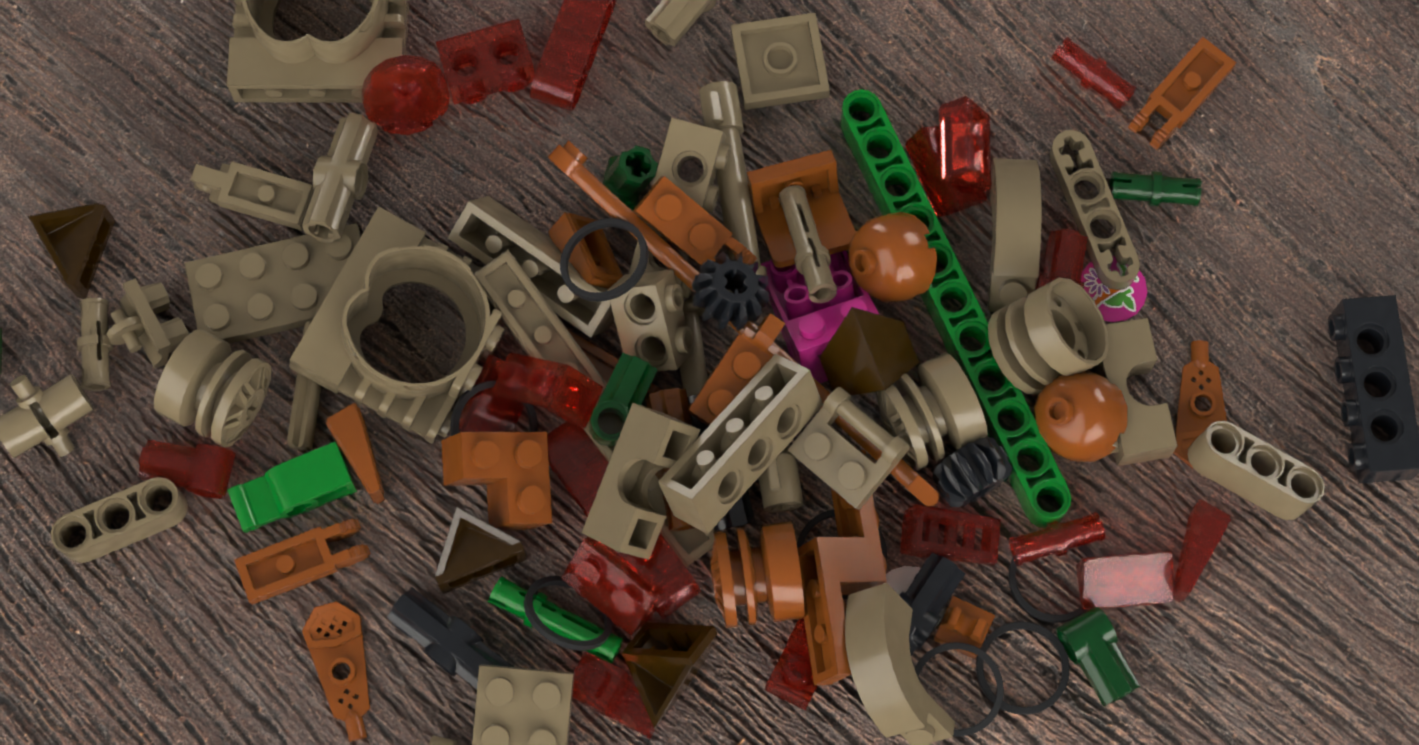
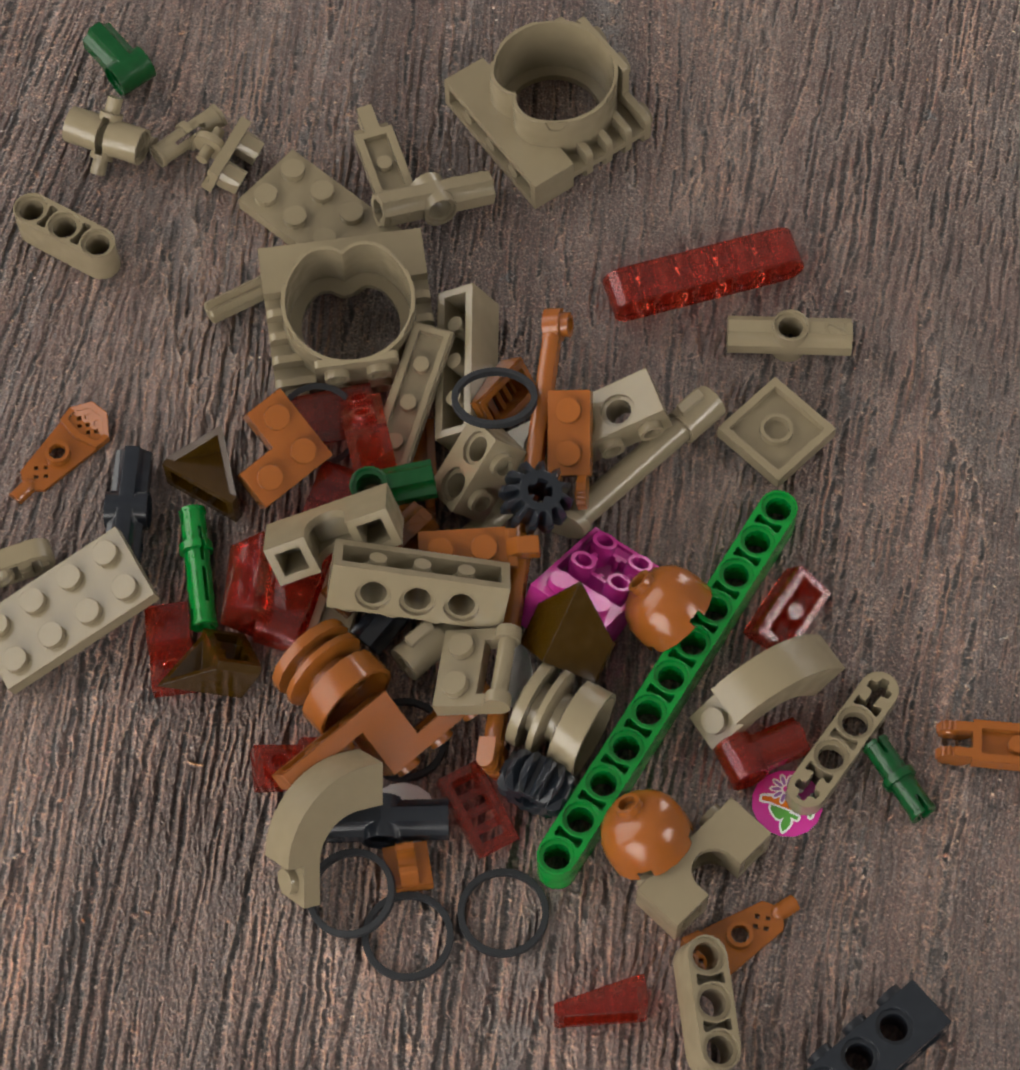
camera: 55 degrees right, 10 degrees down
(75, 242) = (251, 70): dark brown slope -> none
(199, 469) = (140, 257): clear red piece -> none
(212, 387) = (204, 222): dark tan wheel -> none
(293, 488) = (175, 329): green piece -> none
(298, 561) = (120, 368): dark orange hinge -> none
(353, 439) = (236, 344): dark orange slope -> none
(405, 94) = (531, 195): clear red tile -> none
(483, 51) = (610, 228): clear red brick -> none
(549, 634) = (174, 565): black piece -> none
(630, 174) = (587, 374): dark green piece -> none
(811, 257) = (618, 544): dark tan pin -> none
(819, 178) = (661, 519): dark orange bracket -> none
(965, 144) = (817, 606): clear red slope -> none
(1048, 335) = (691, 760): dark tan wheel -> none
(1057, 538) = (531, 888): clear red pin -> none
(1092, 645) = (461, 973): dark green piece -> none
(1093, 73) = (961, 668): clear red pin -> none
(1125, 580) = (537, 965): clear red slope -> none

